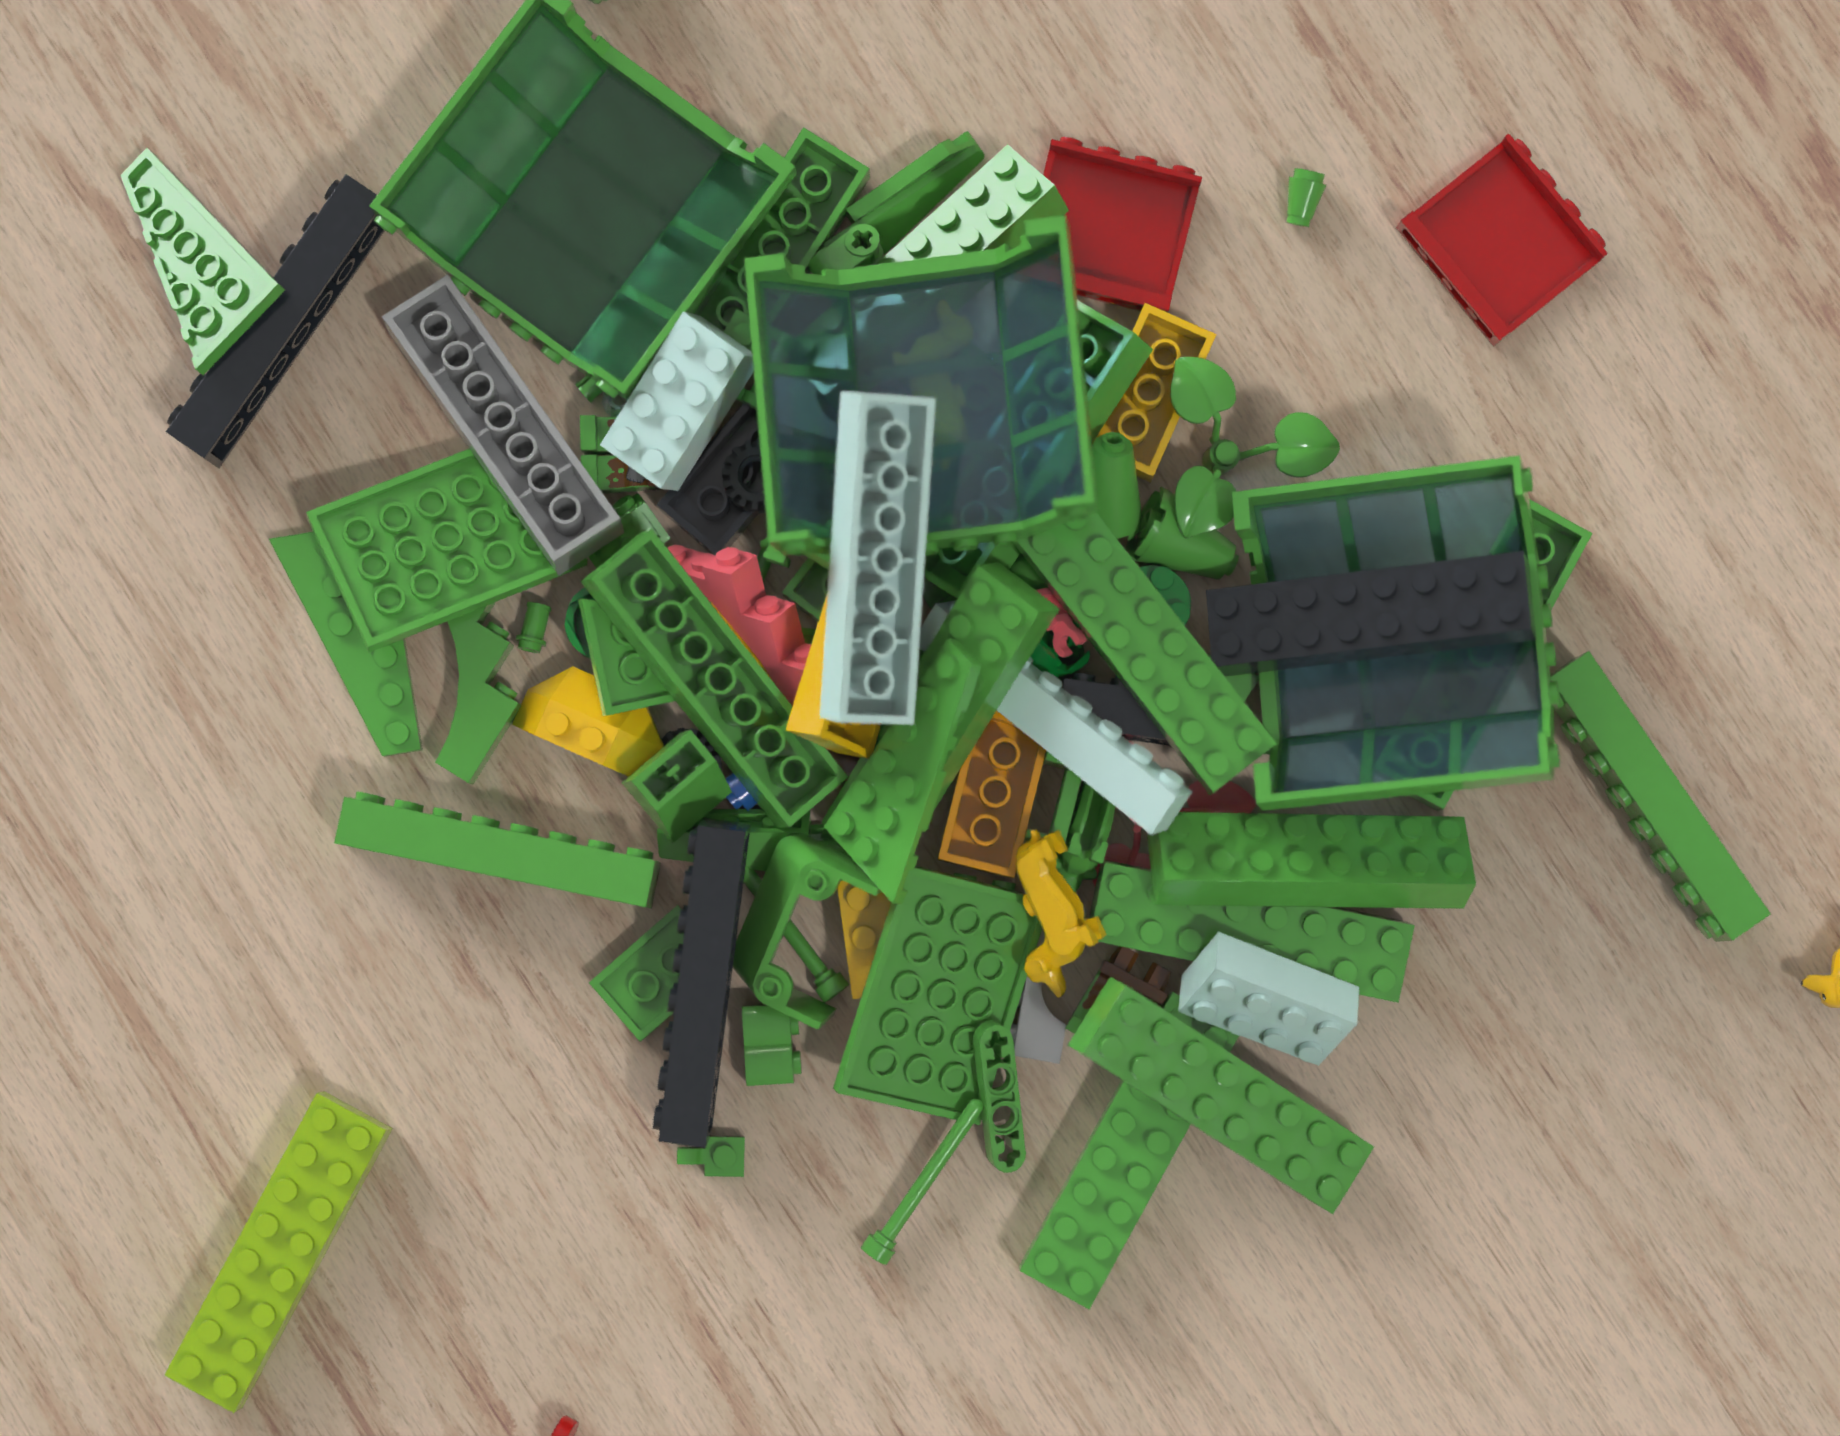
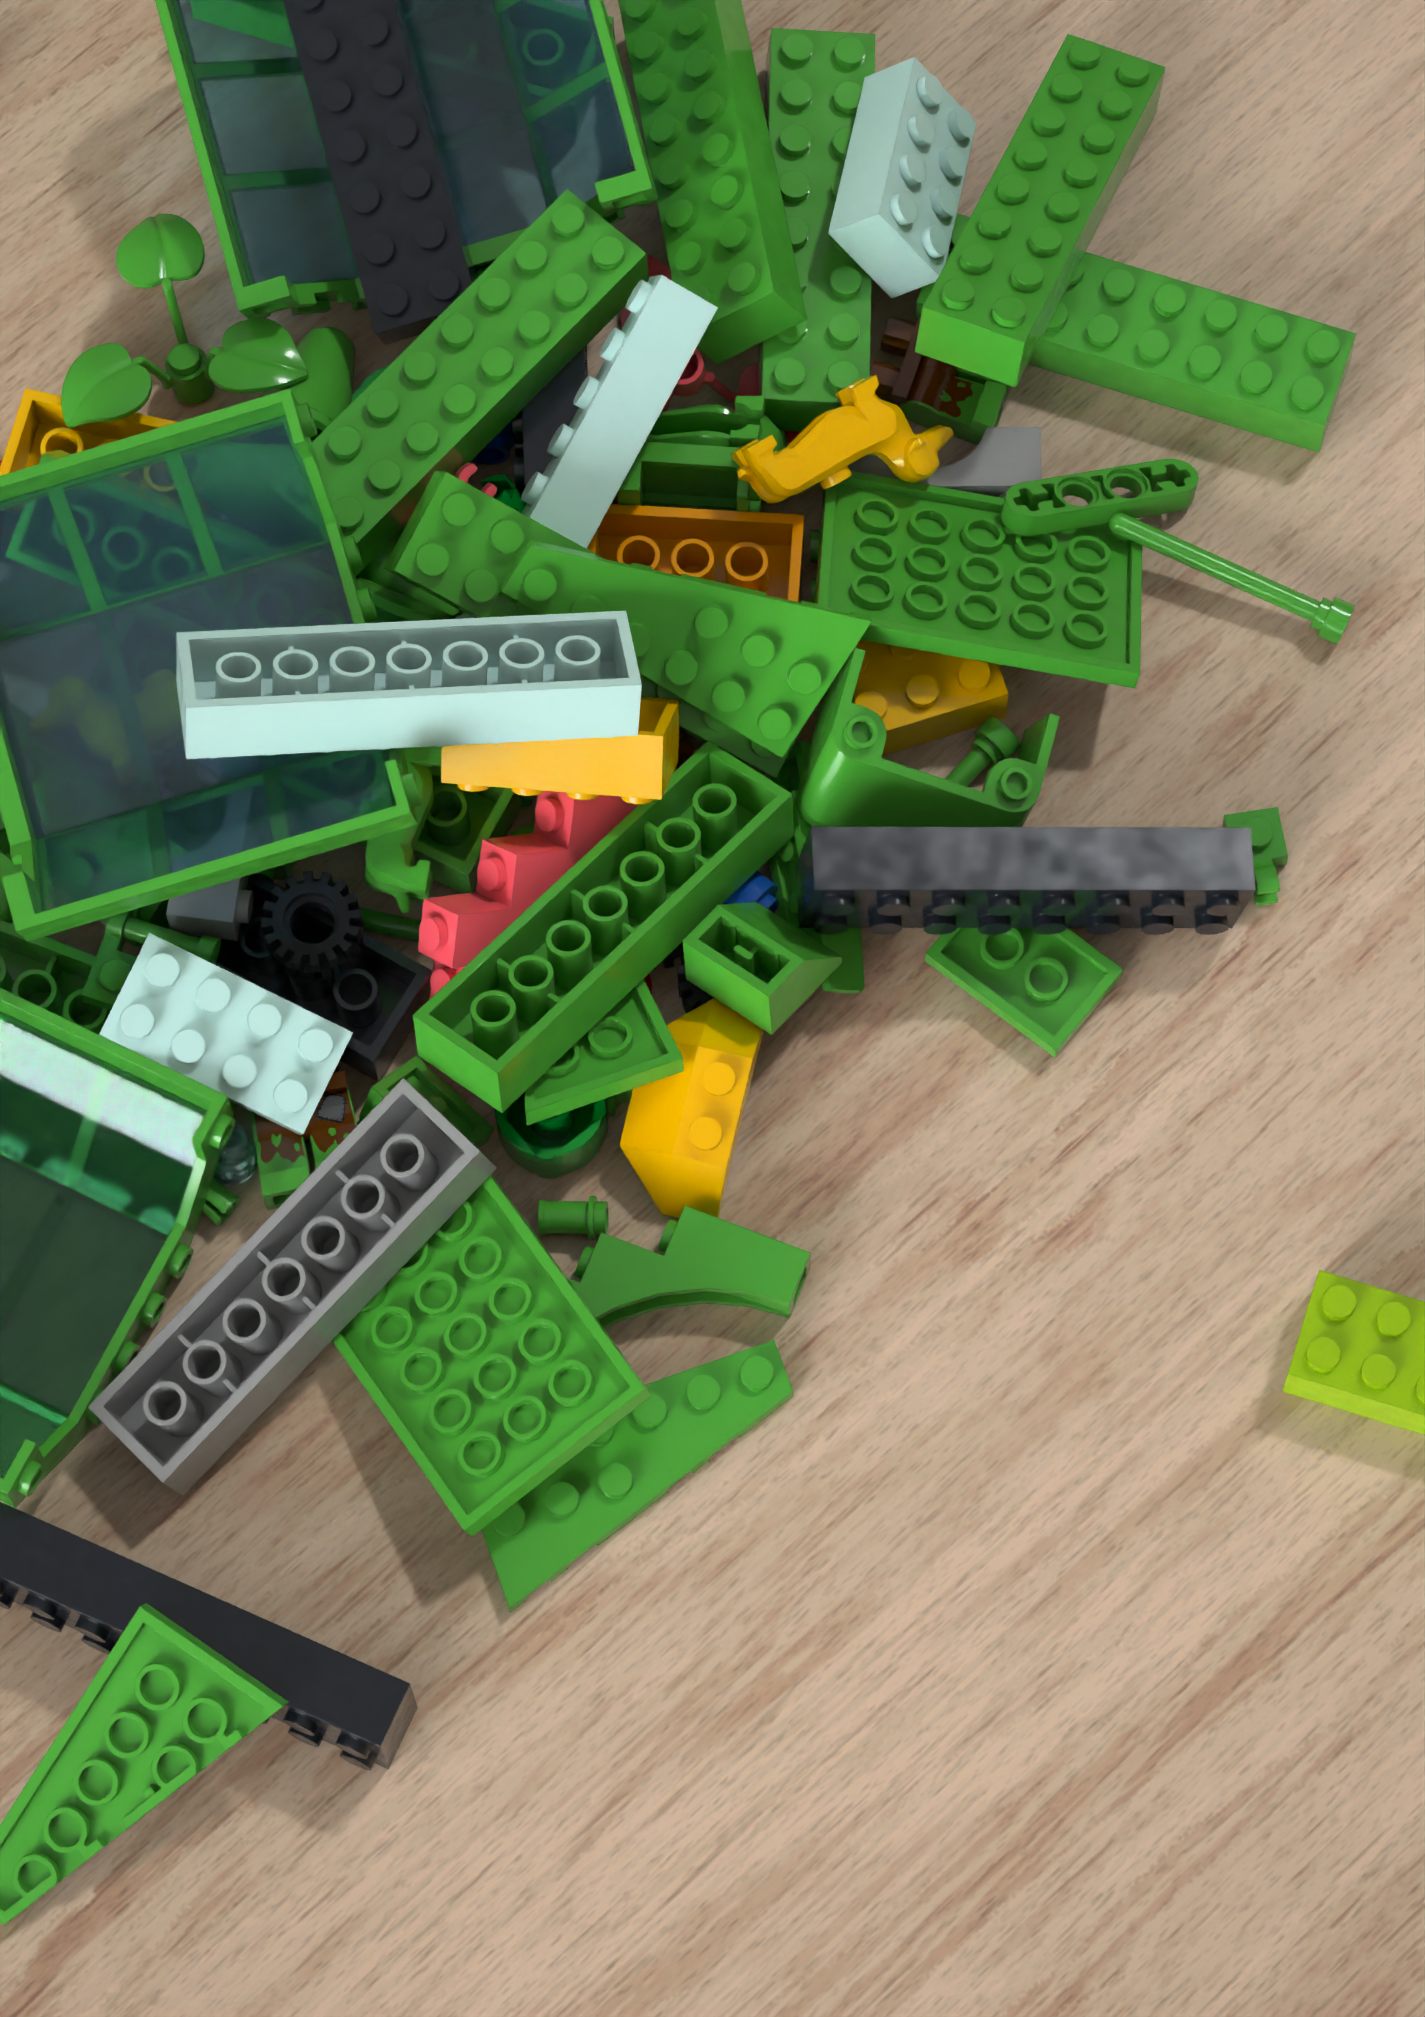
camera: 100 degrees left, 15 degrees down
(498, 852) = (899, 1205): bright green brick -> none
(769, 1046) = (1095, 796): bright green brick -> none

